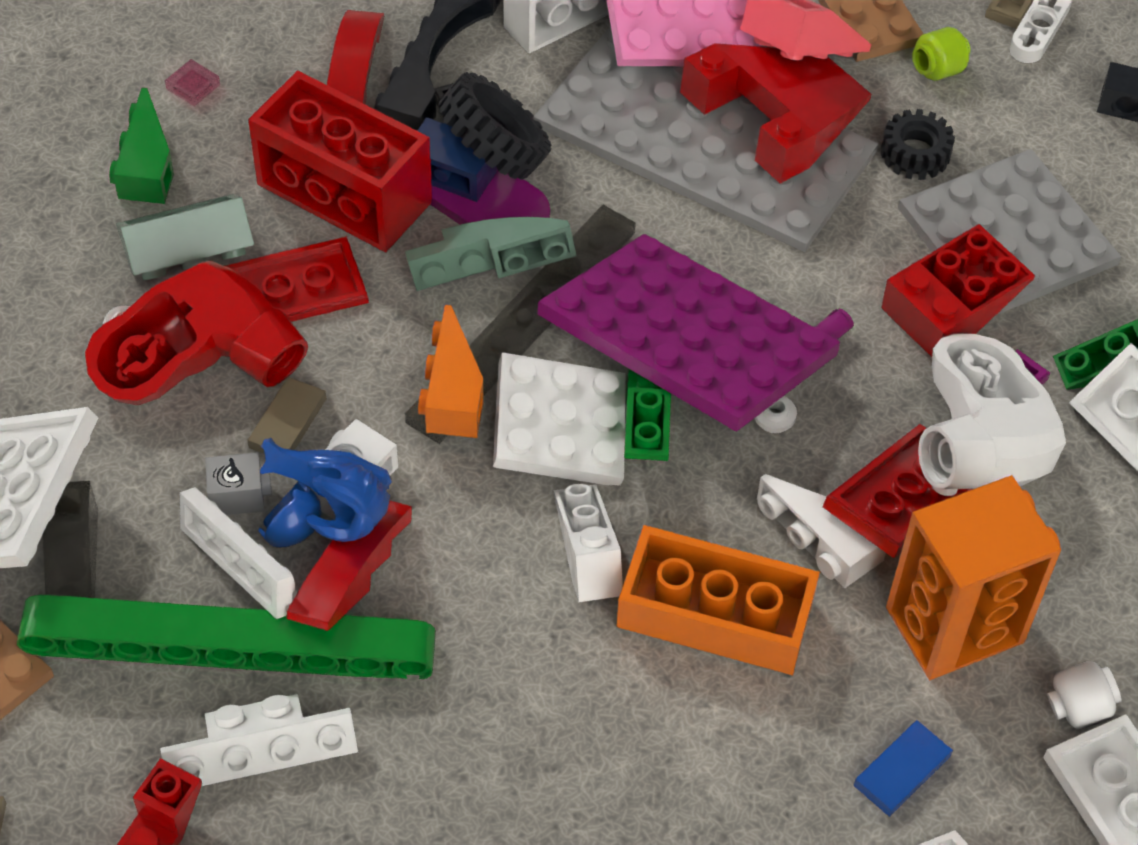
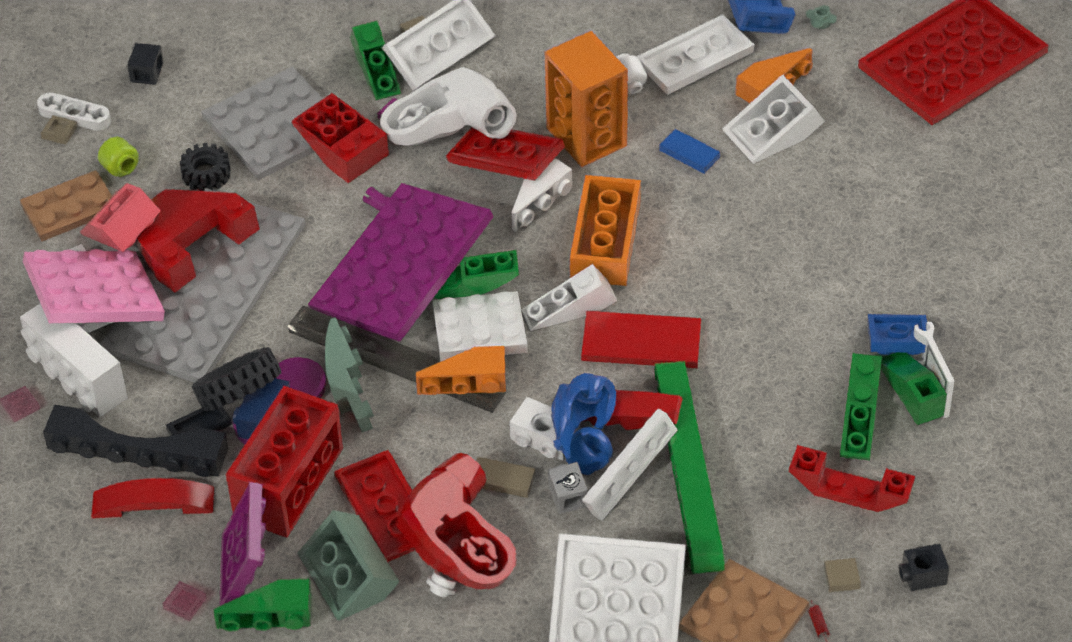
camera: 95 degrees left, 5 degrees down
(205, 103) = (242, 544): none -> magenta plate
(262, 740) = (746, 442): white bracket -> none
(501, 631) = (640, 339): none -> red tile

